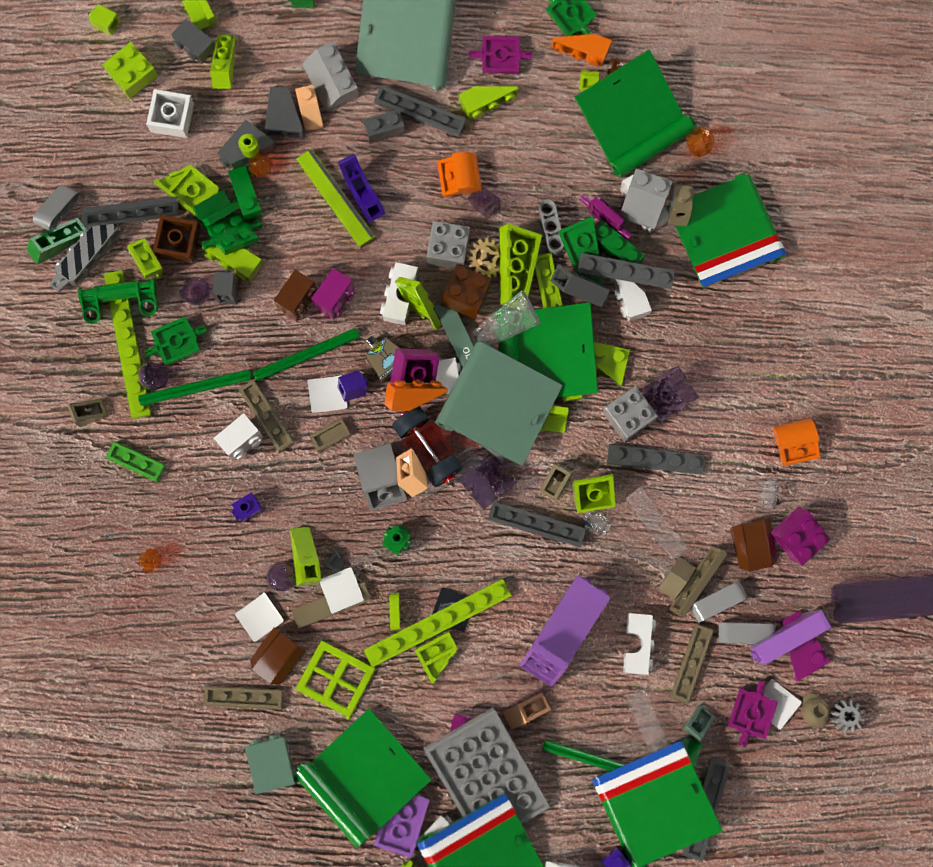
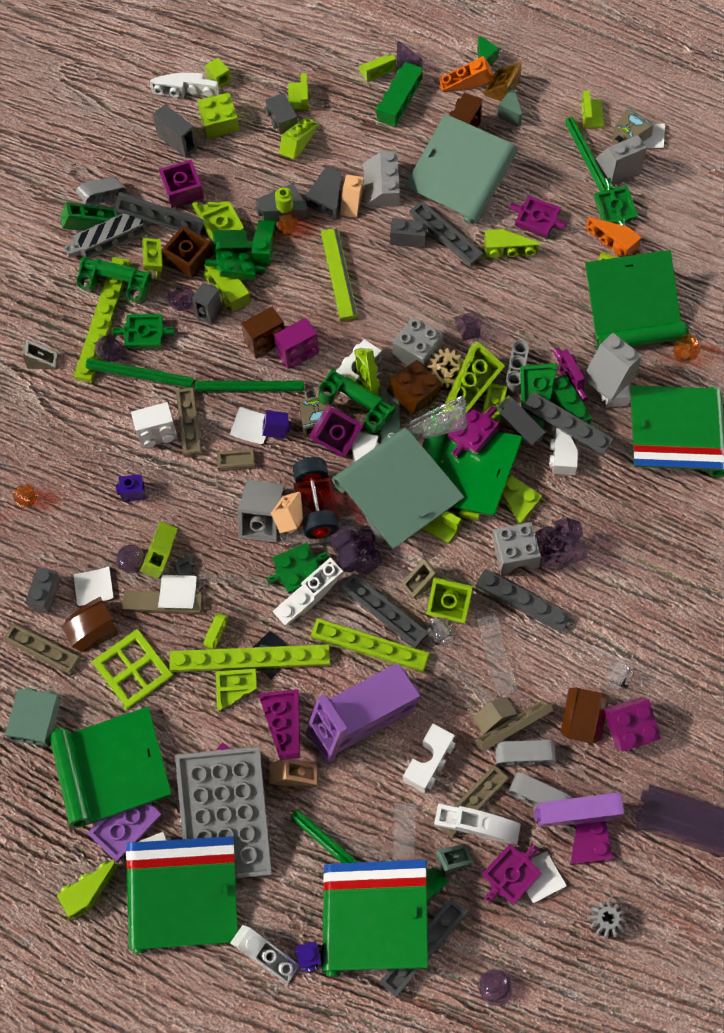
camera: 25 degrees right, 15 degrees down
(70, 49) = (181, 83): none -> white slope
(96, 108) = (175, 131): none -> dark grey brick
(132, 165) = (181, 183): none -> magenta brick
(136, 461) = (58, 413): bright green tile -> none
(170, 113) = (233, 157): white brick -> none
(217, 644) = (43, 590): none -> dark grey brick
(360, 188) = (363, 269): dark purple arch -> none
(391, 534) = (249, 568): green brick -> none
(407, 396) = (318, 445): orange slope -> none
(439, 518) = (295, 566): none -> green plate
(446, 331) = (379, 410): none -> green piece
(459, 174) = (456, 293): orange brick -> none
(463, 539) = (310, 592): none -> white slope
(495, 666) = (283, 719): none -> magenta wing
(538, 562) = (370, 645): none -> lime tile
(549, 313) = (477, 434): none -> magenta plate
(680, 202) = (645, 380): dark tan torso -> none
(705, 684) = (478, 823): none -> white slope
(779, 814) = (495, 987): none -> clear purple hair
(797, 441) = (666, 639): orange brick -> none
(815, 710) = (577, 901): dark tan piece -> none

